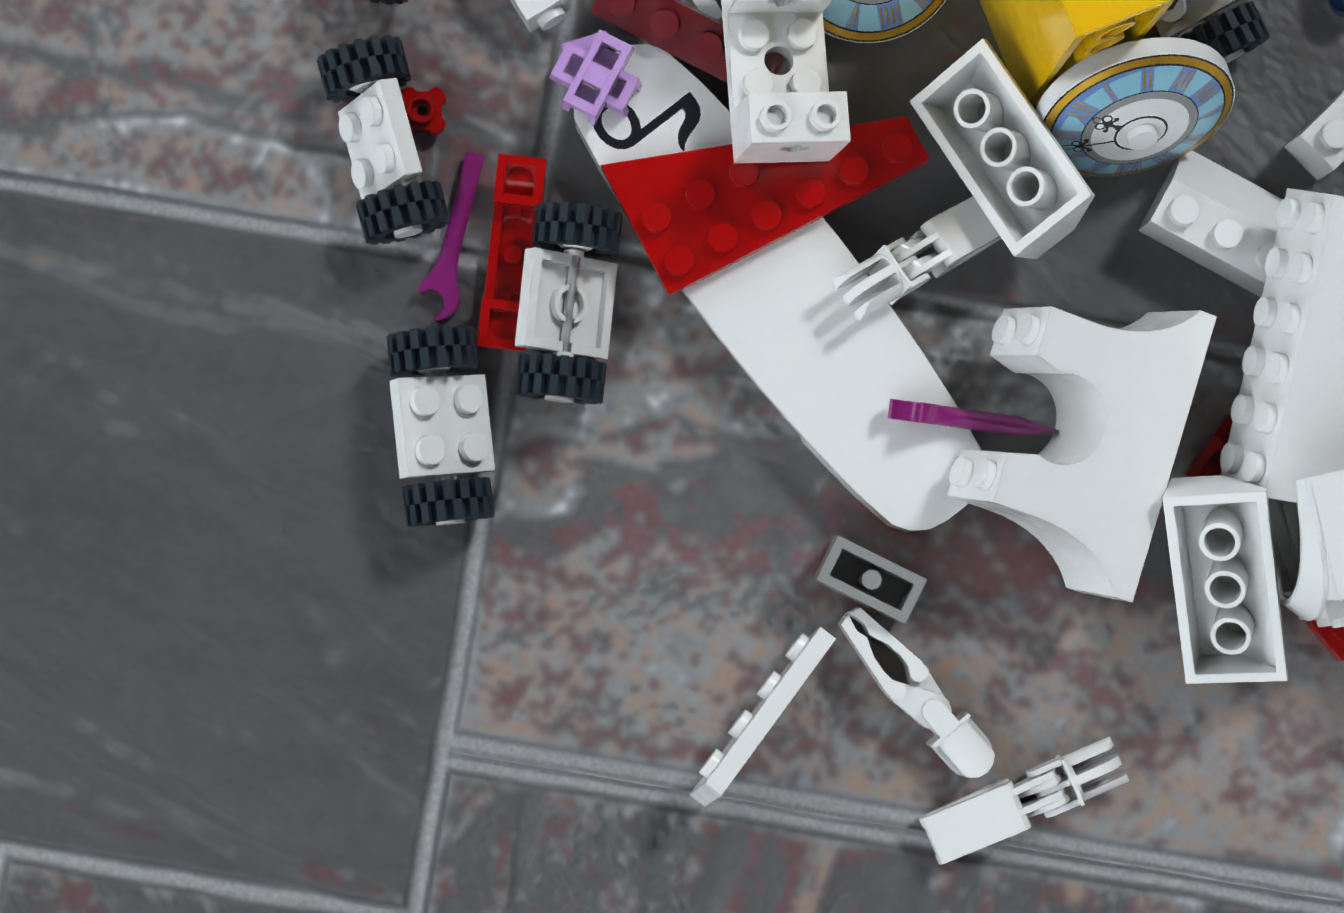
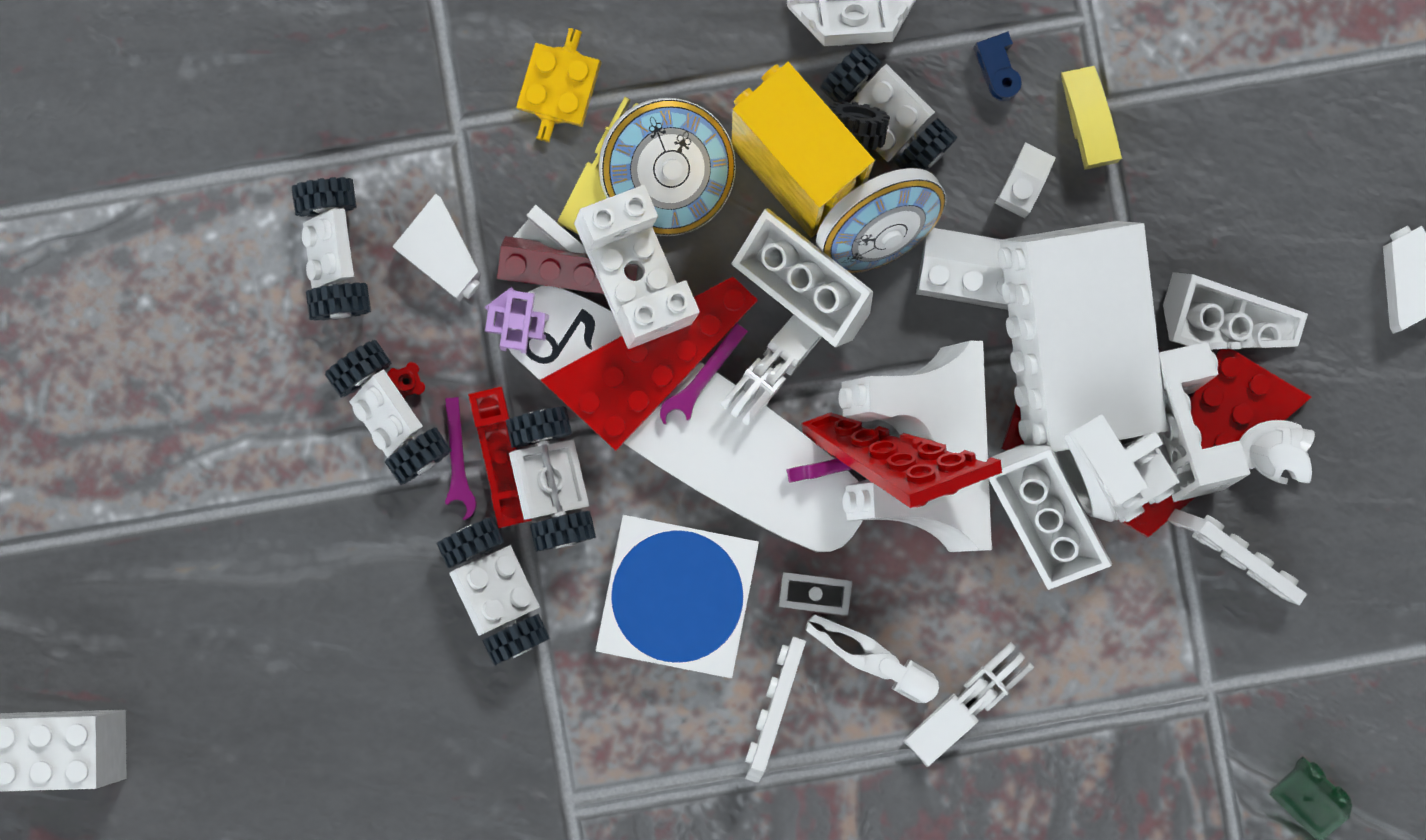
camera: 15 degrees left, 0 degrees up
(684, 519) = (677, 596): none -> blue tile
(787, 259) = (687, 397): none -> magenta piece
(1057, 446) = (905, 466): none -> red wing

